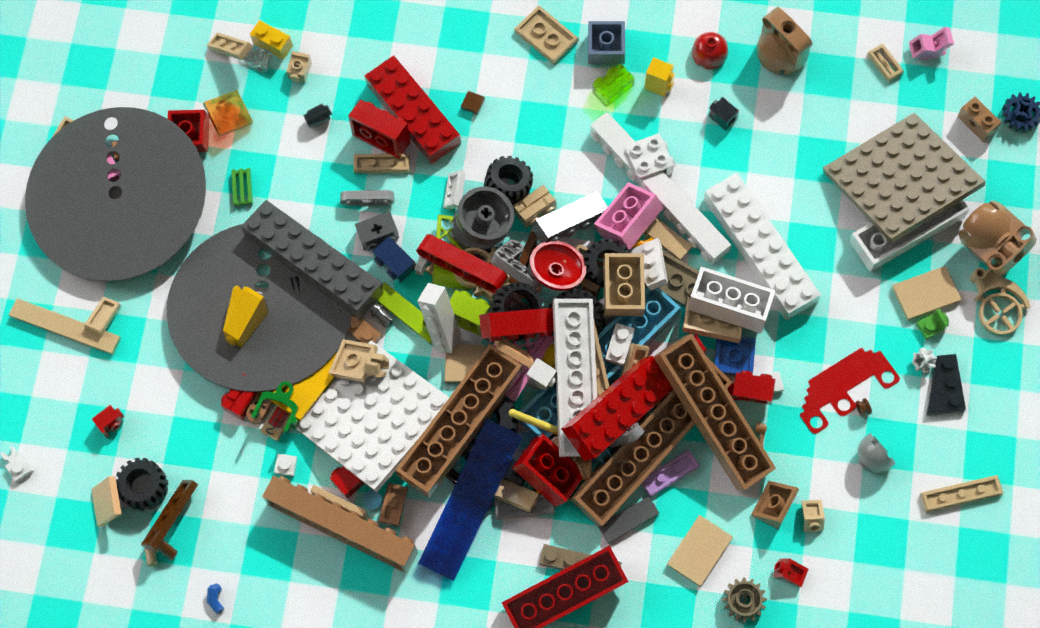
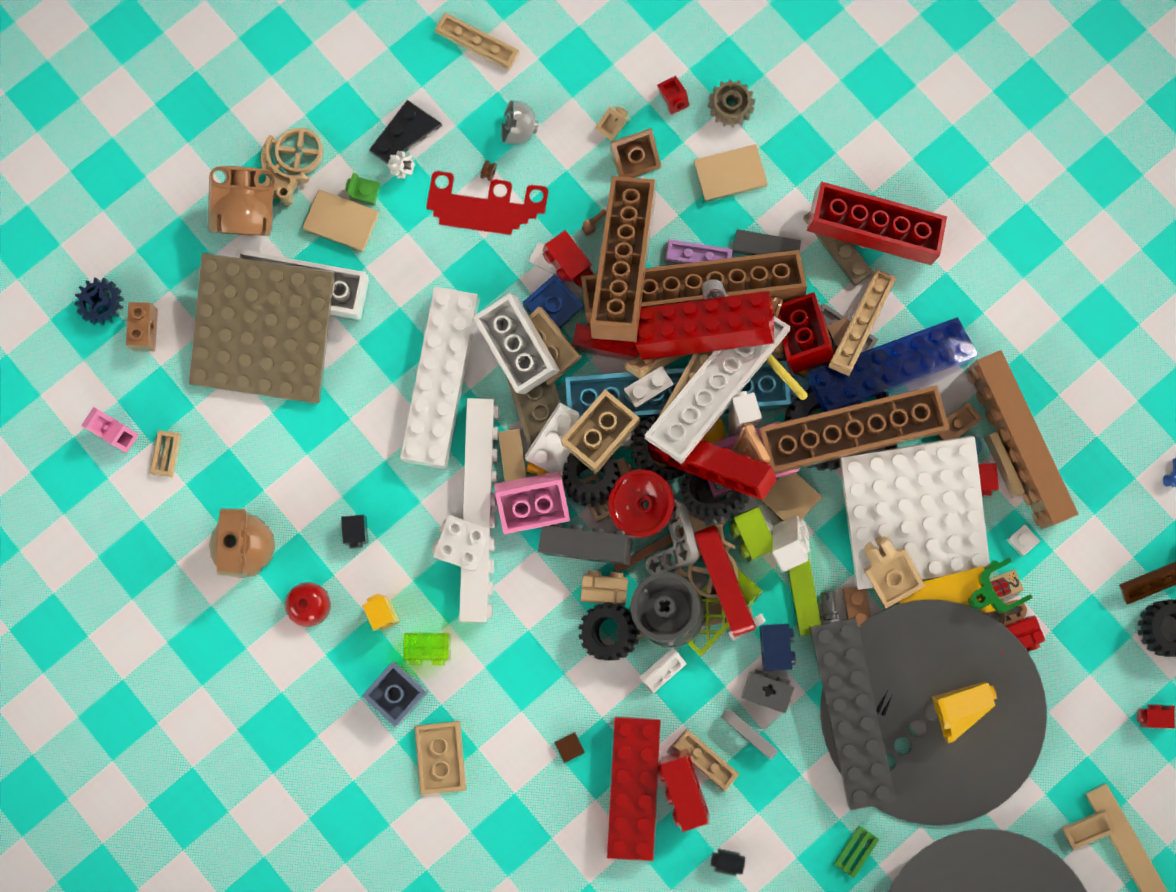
camera: 140 degrees left, 10 degrees up
(515, 511) = (862, 322): none -> tan tile

